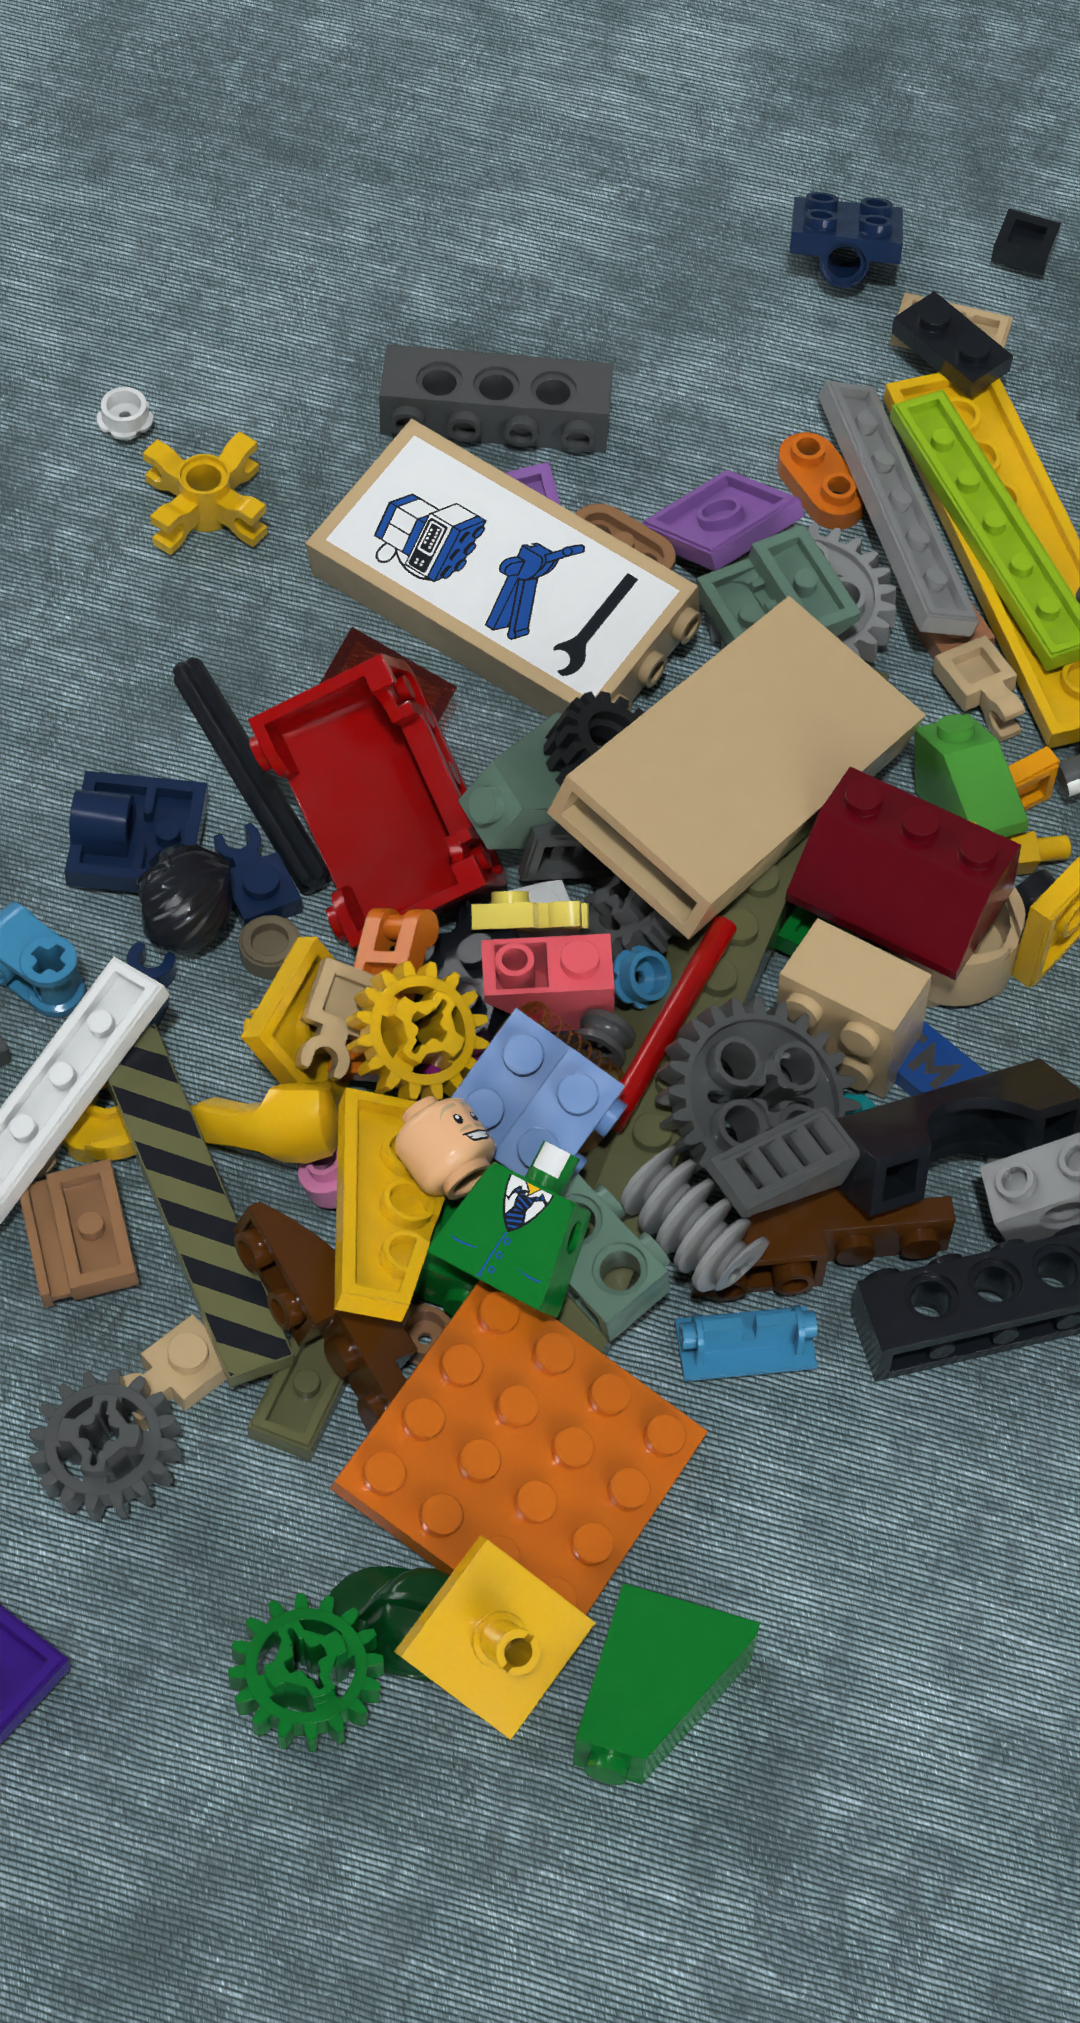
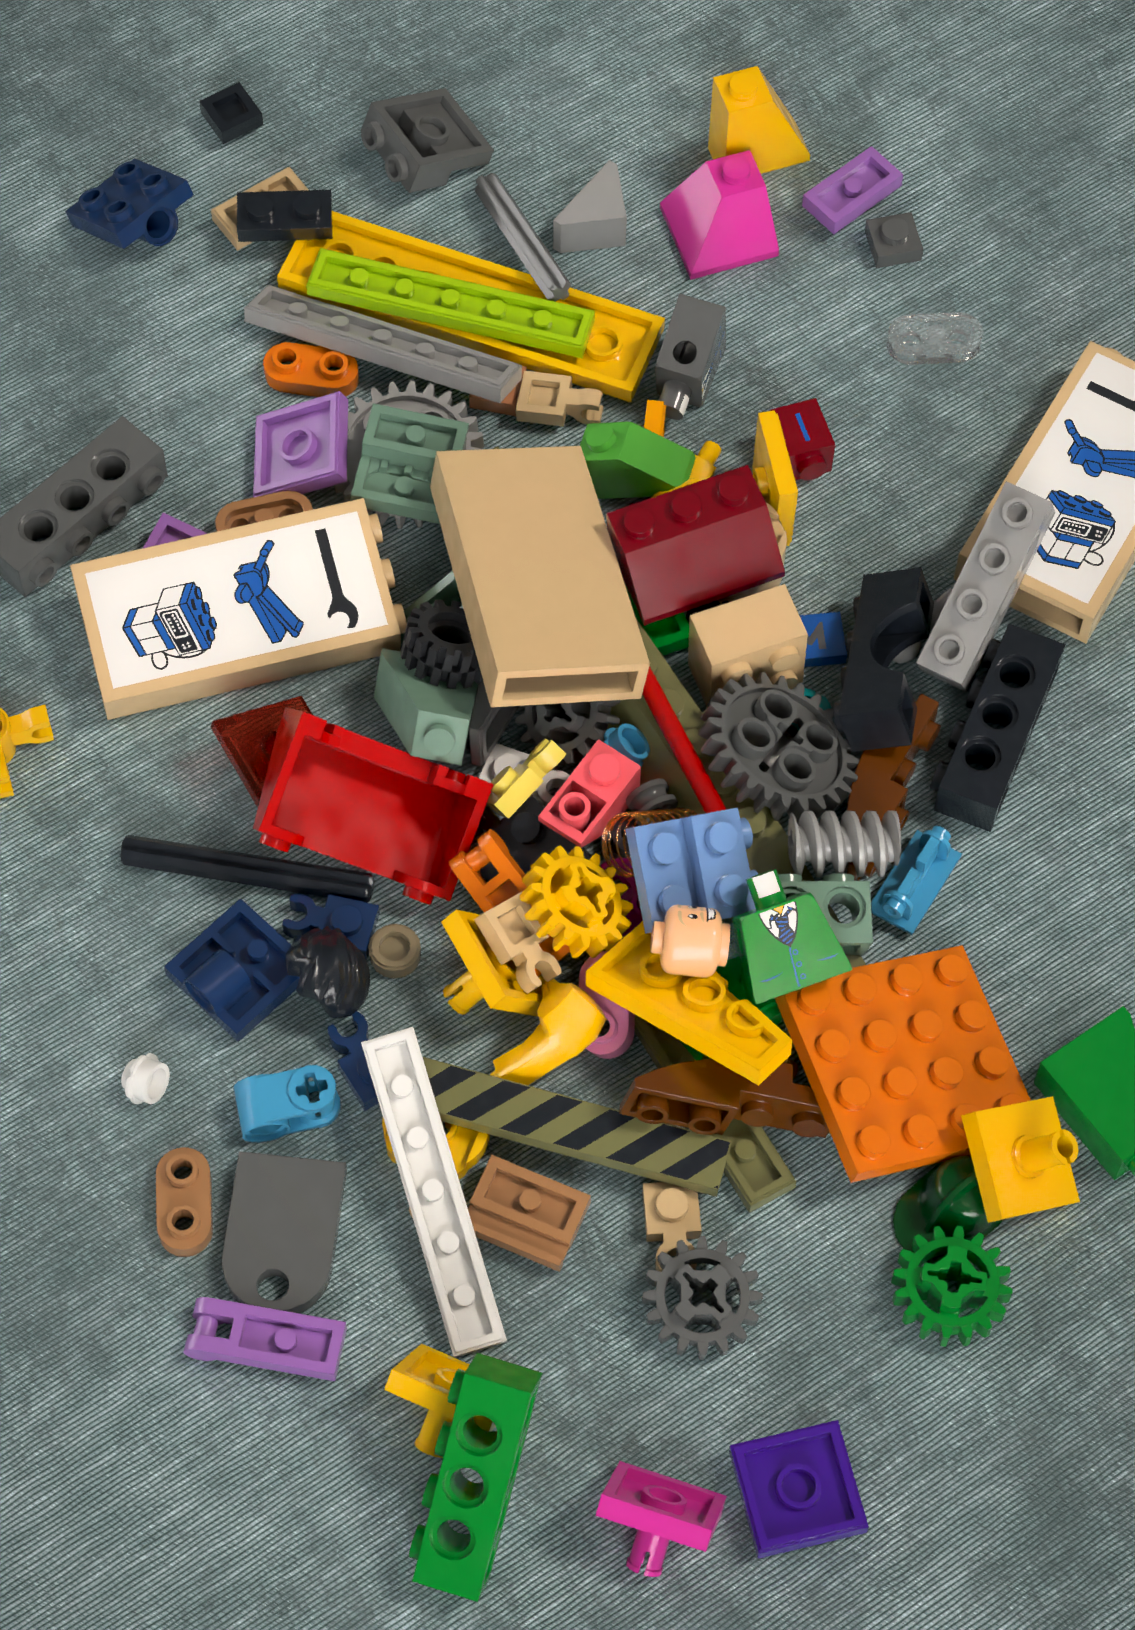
camera: 50 degrees left, 5 degrees up
(814, 1138) = (850, 759): dark grey slope -> none

